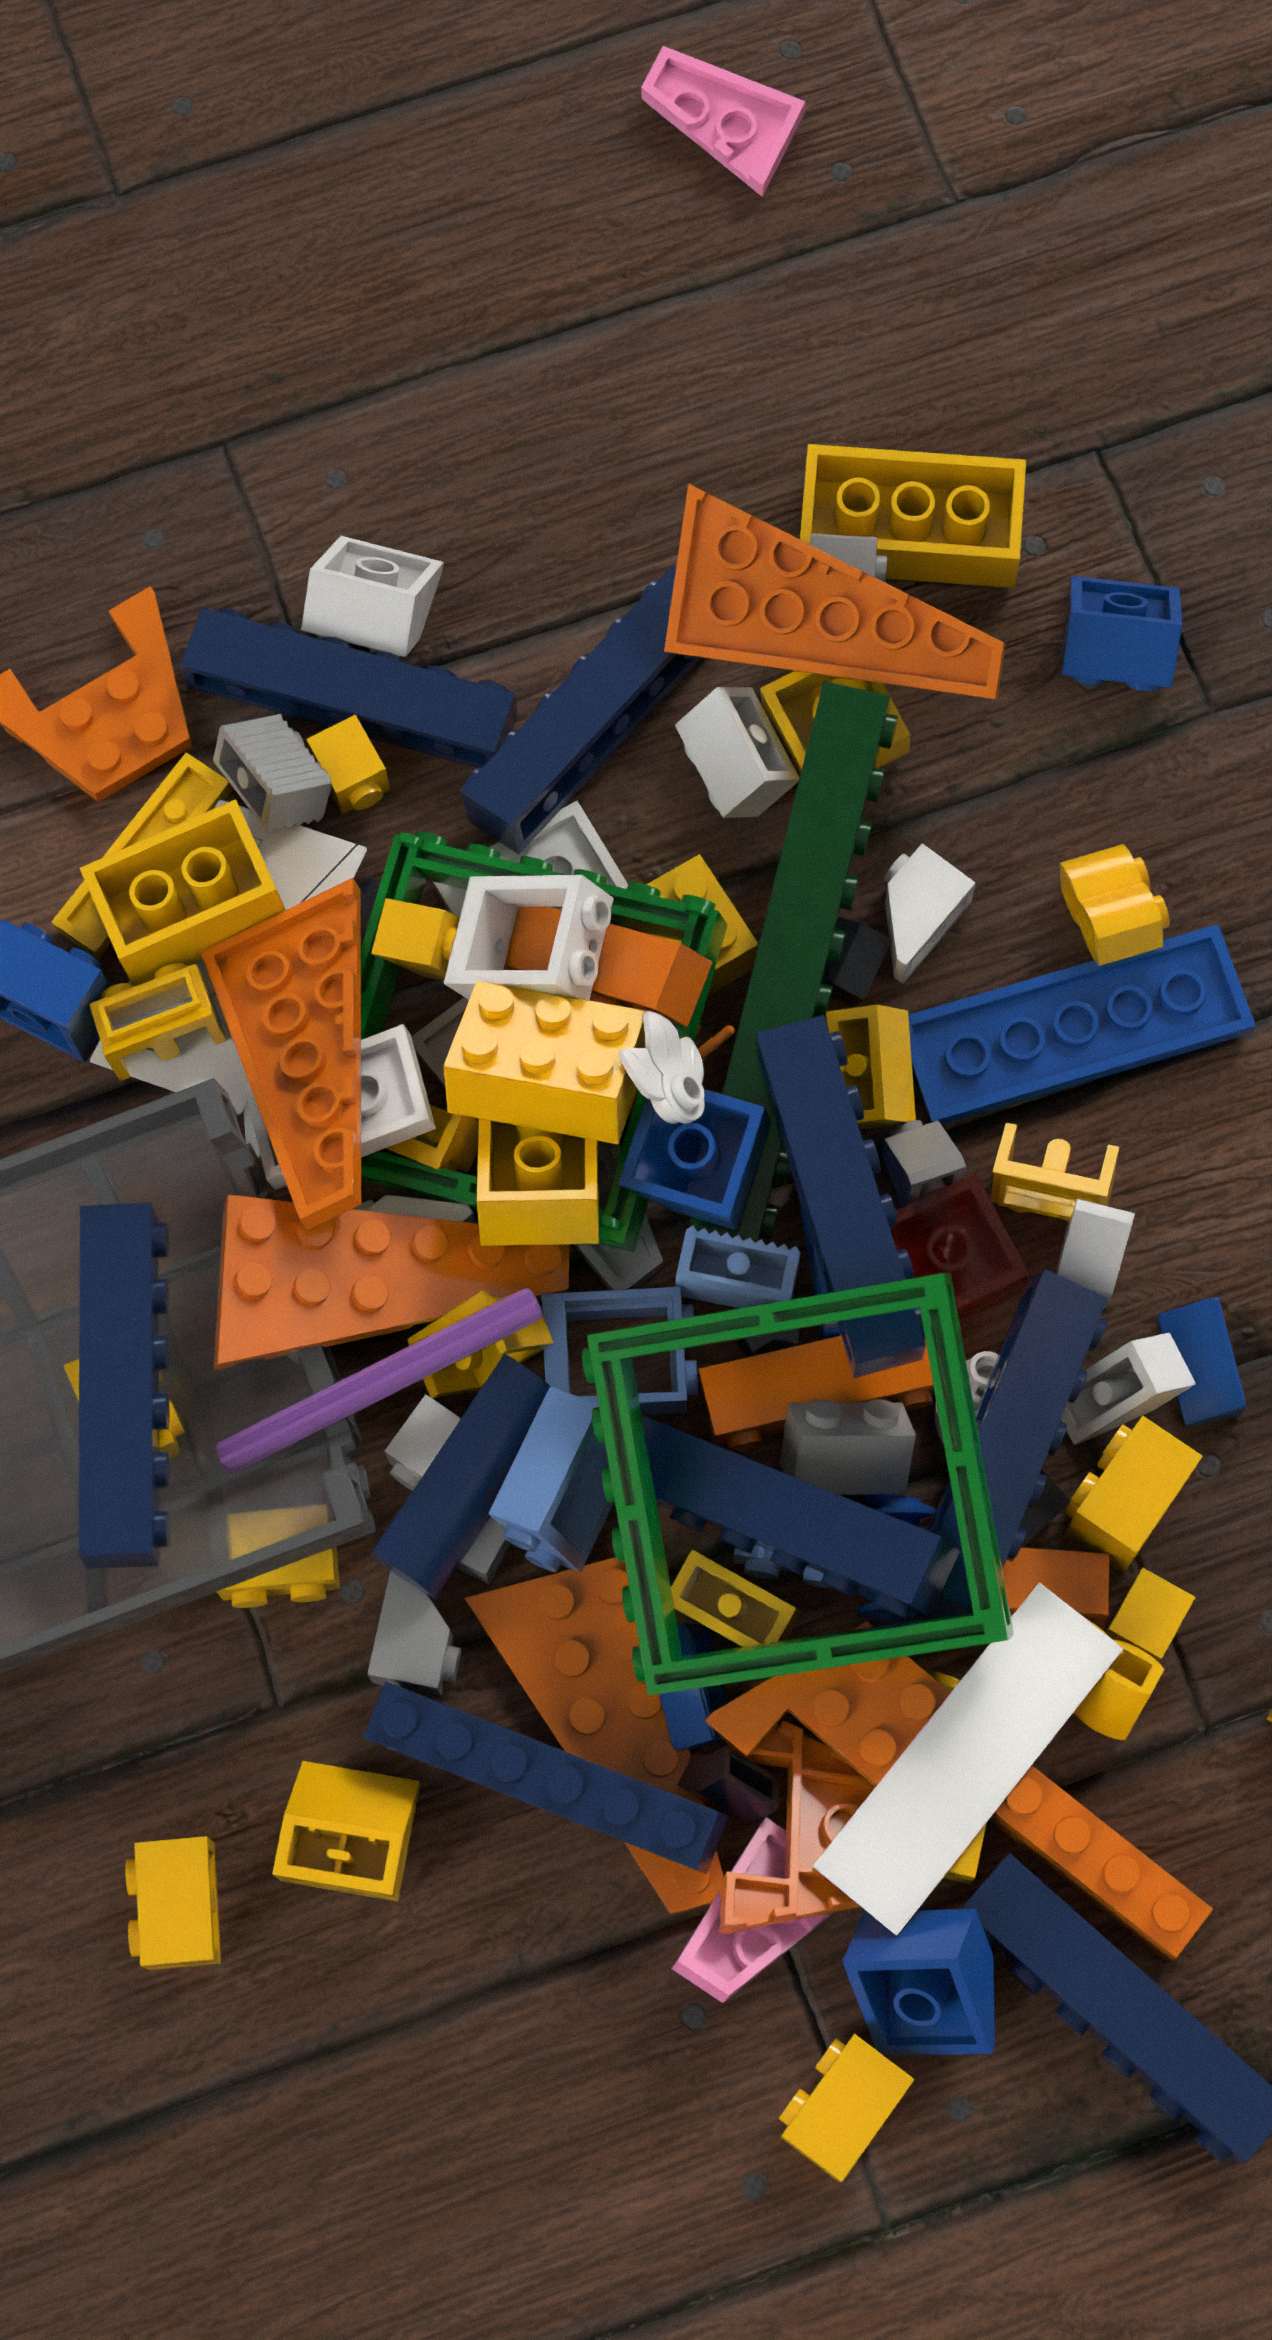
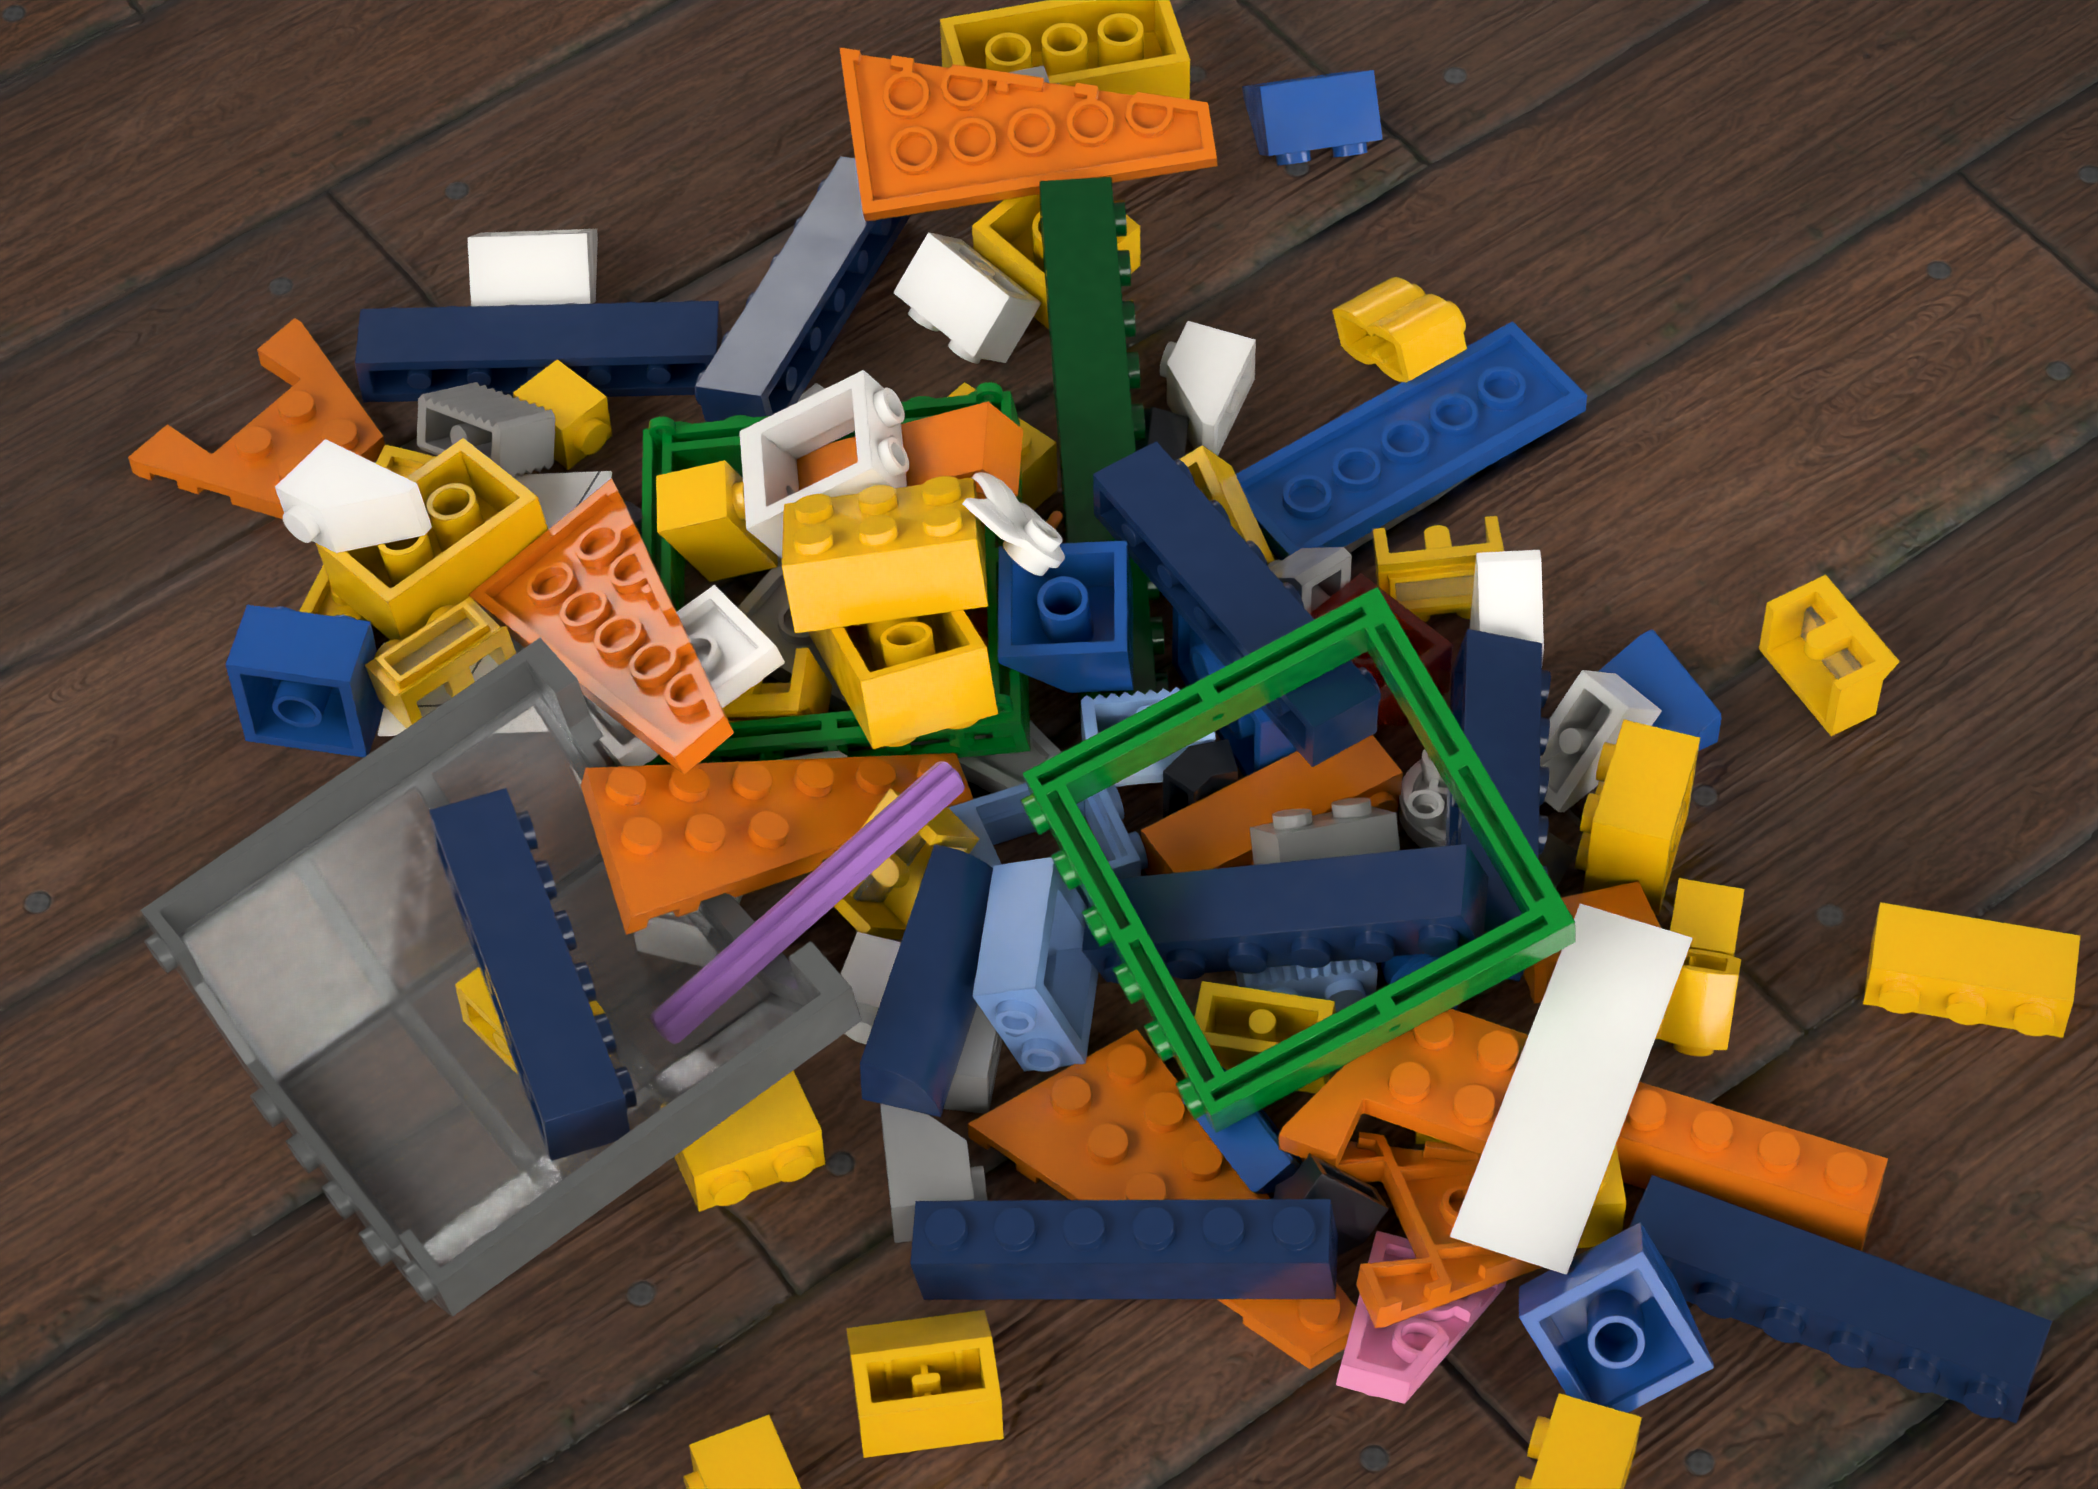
camera: 20 degrees left, 20 degrees down
(110, 848) = (349, 501): none -> white slope

